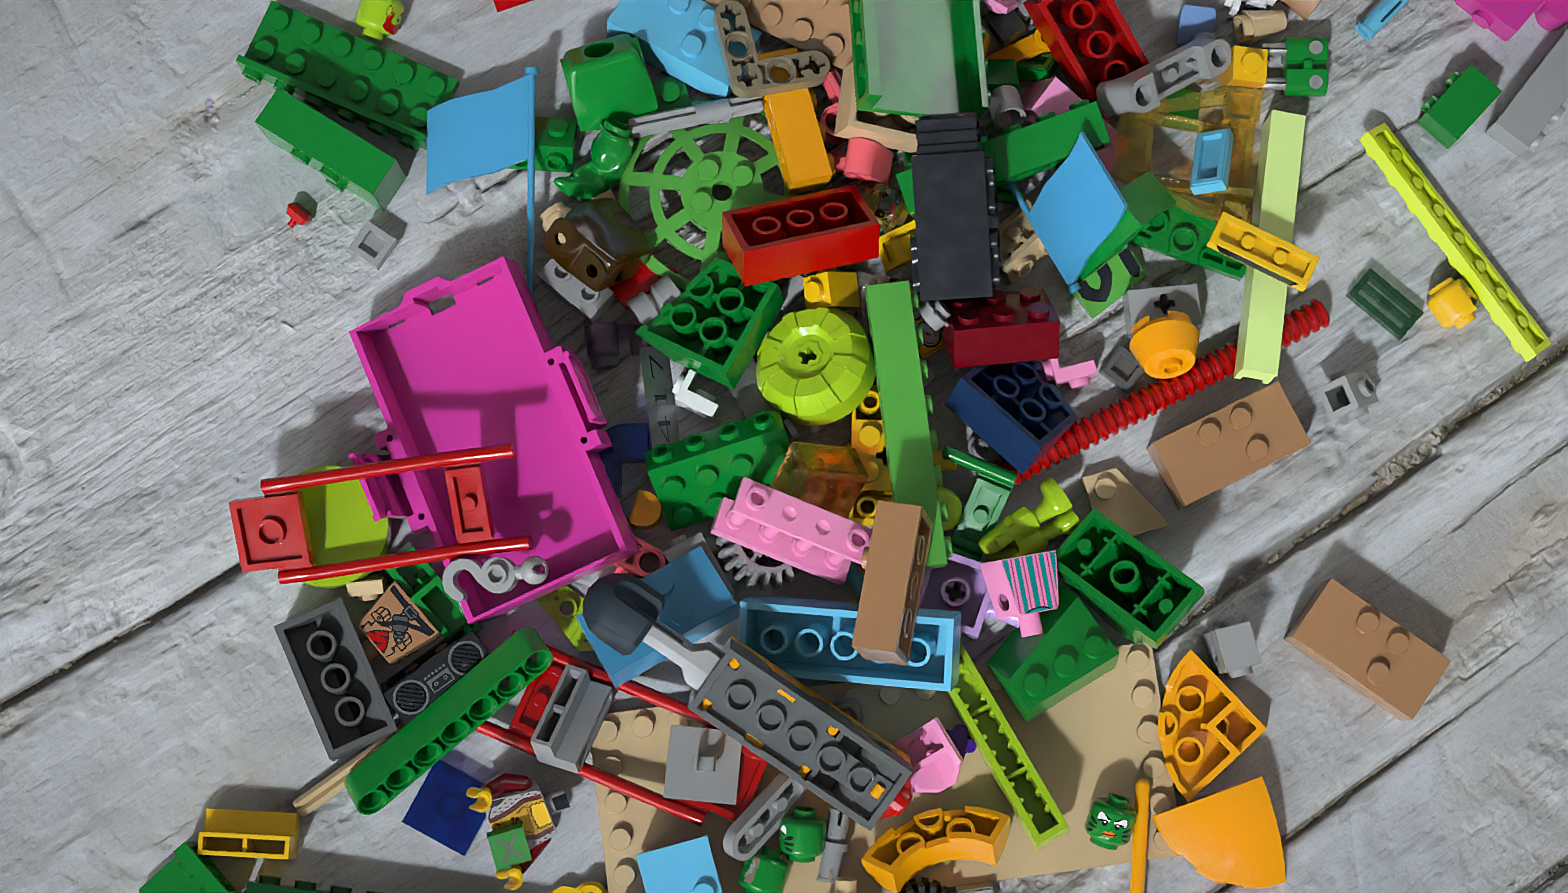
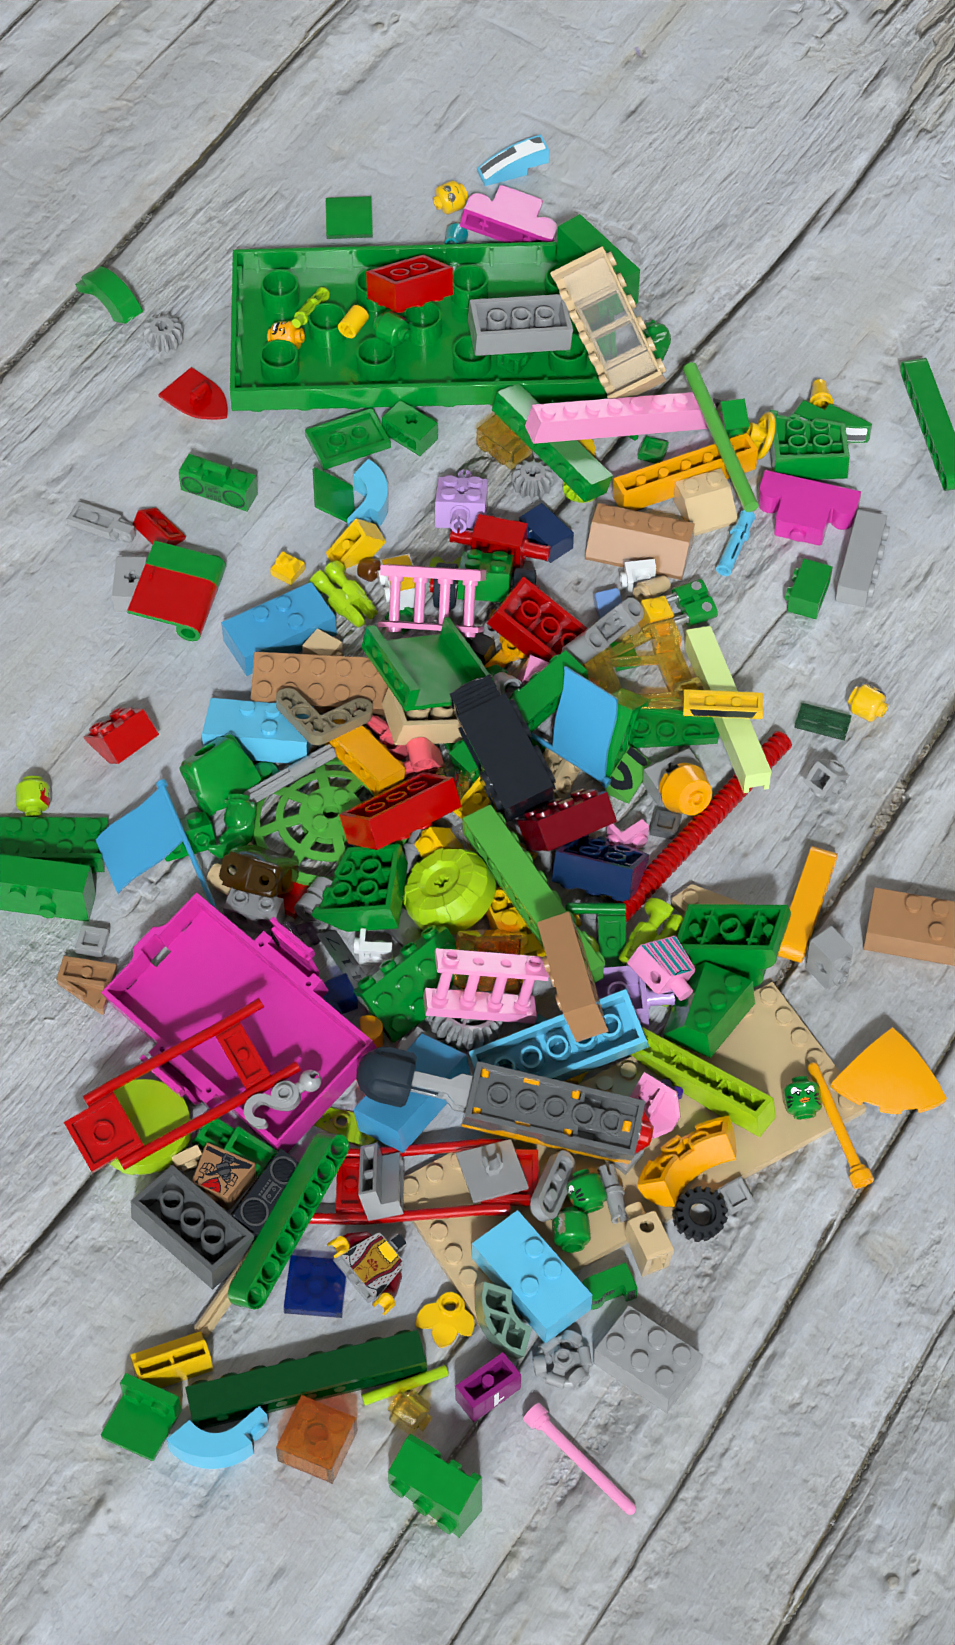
camera: 20 degrees left, 25 degrees down
(298, 214) = (26, 943): red rock -> none
(347, 296) = (86, 980): none -> medium nougat wing
(509, 846) = (374, 1280): green tile -> none
(935, 314) = (519, 821): light grey plate -> none
(1038, 69) = (515, 667): green tile -> none
(1201, 726) = (836, 1016): light orange brick -> none
(1211, 161) = (661, 673): medium azure tile -> none
(1228, 445) = (761, 840): medium nougat brick -> none
(1247, 551) = (807, 903): none -> light orange beam
(1455, 242) = (842, 663): neon yellow plate -> none

